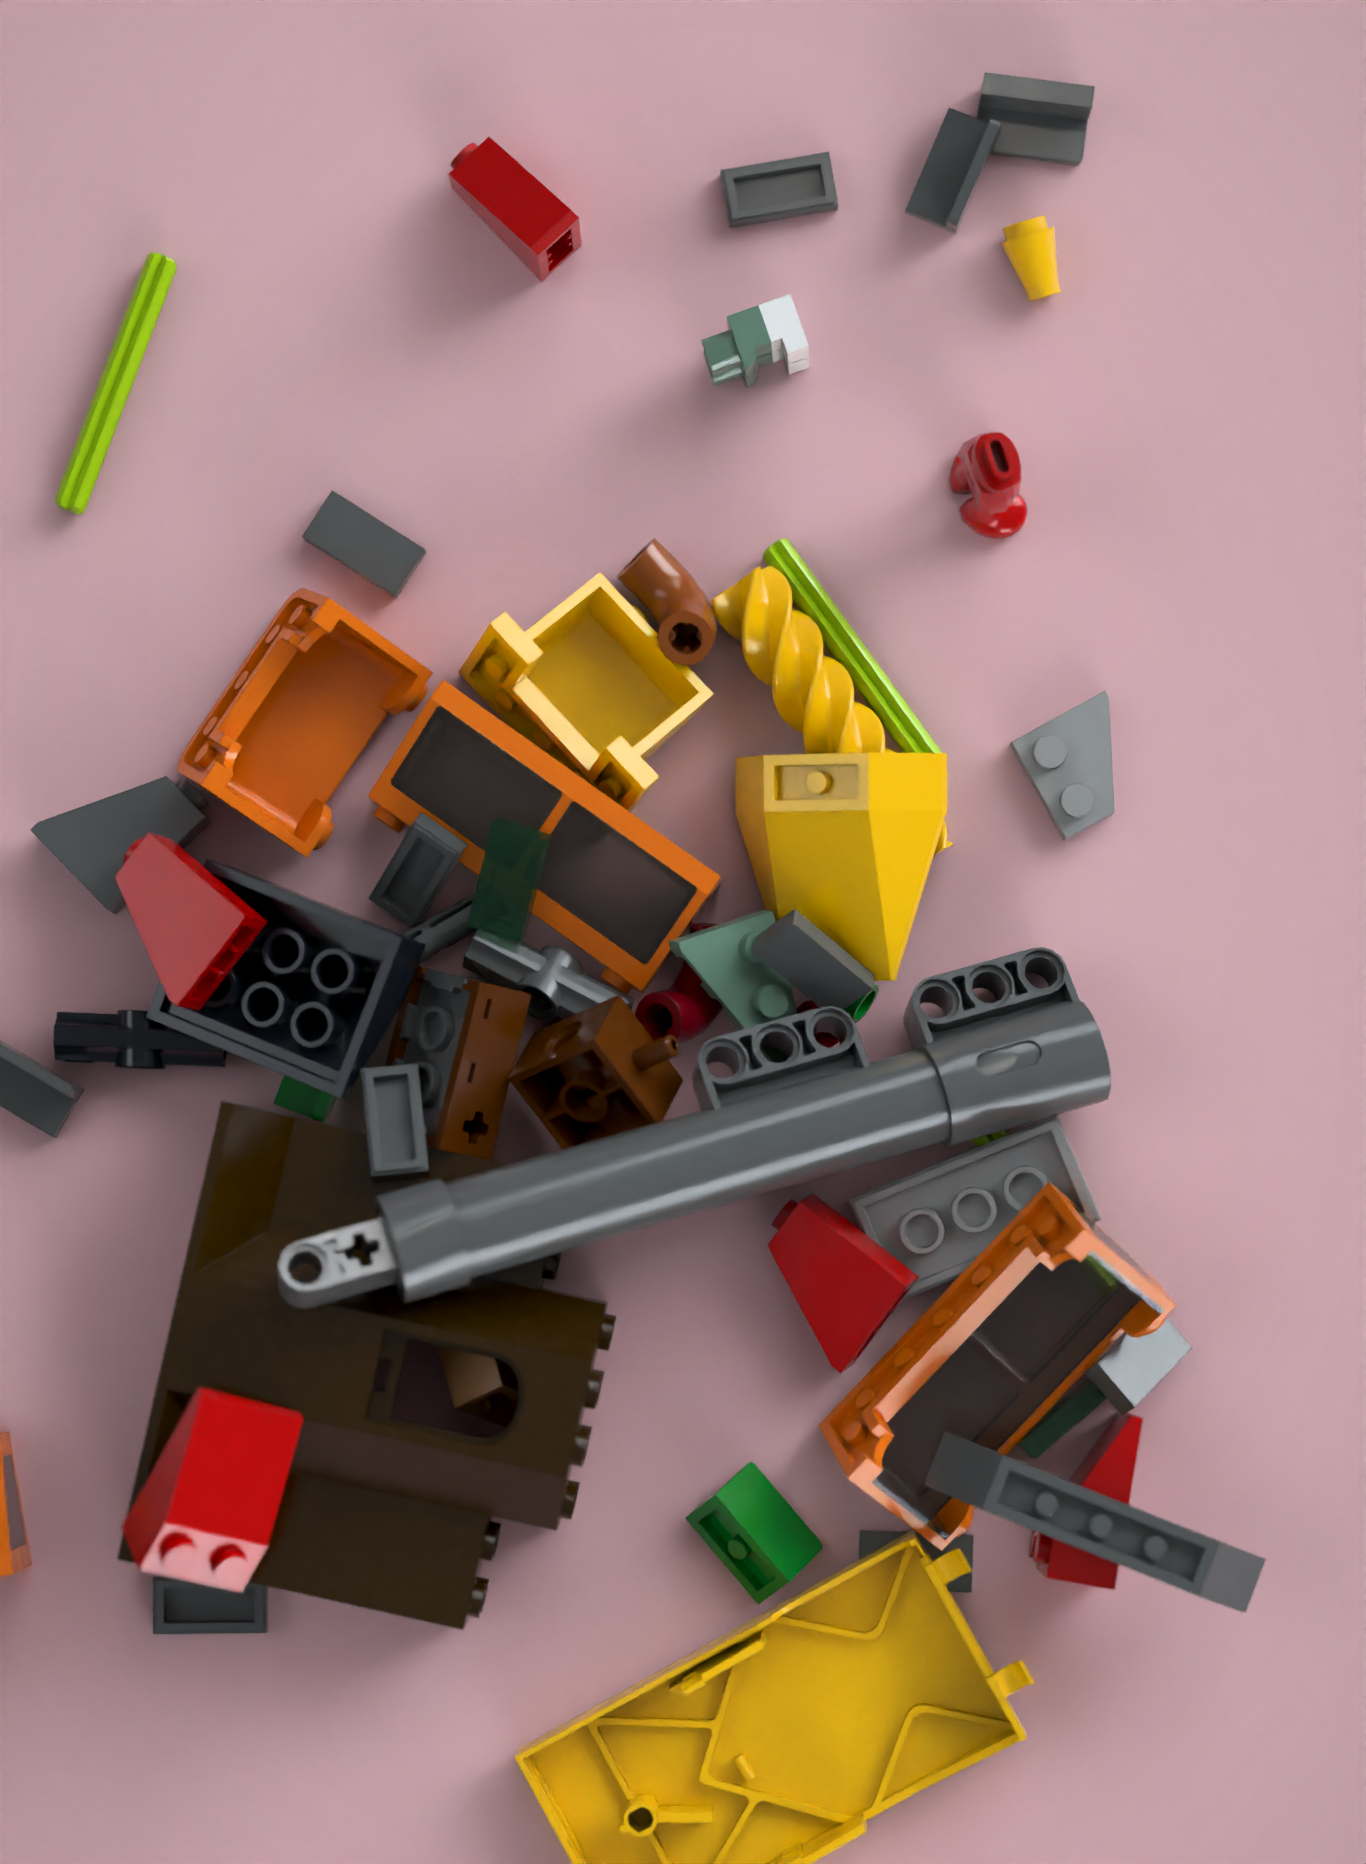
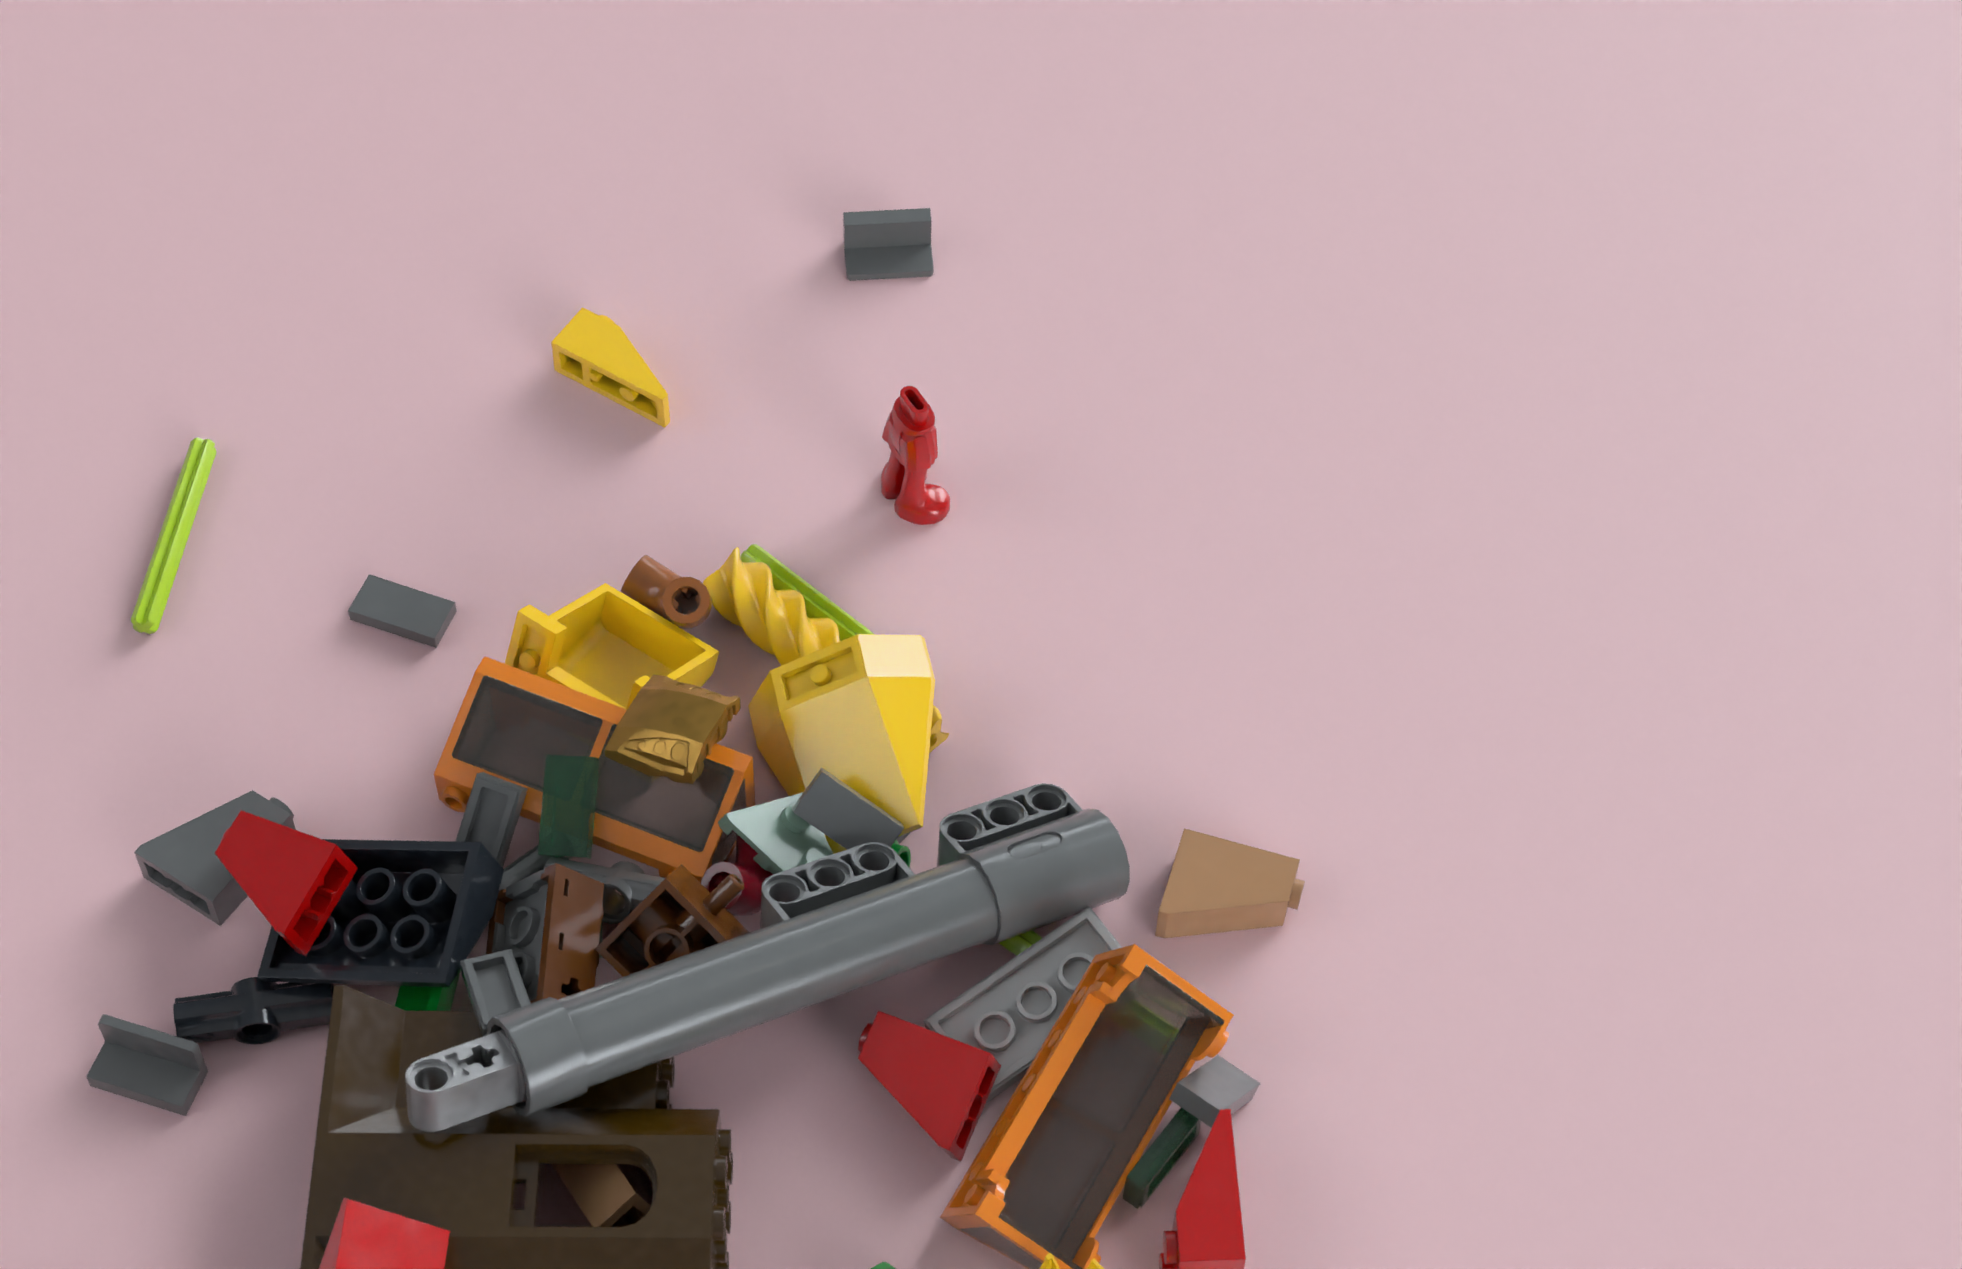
camera: 15 degrees left, 30 degrees down
(300, 718) = (370, 733): orange windscreen -> none
(516, 206) = (493, 358): red slope -> none
(636, 830) = (671, 729): none -> pearl gold slope
(651, 229) = (604, 360): none -> yellow slope
(757, 339) = (705, 408): sand green hips -> none
(779, 189) = (700, 324): dark grey tile -> none
(952, 170) = (835, 286): dark grey panel -> none
(1033, 256) = (910, 328): yellow cone -> none
(1072, 765) = (1032, 665): light grey wing -> none
(1094, 1522) = (1215, 1198): dark grey slope -> none
(1215, 1108) = (1226, 888): none -> medium nougat slope

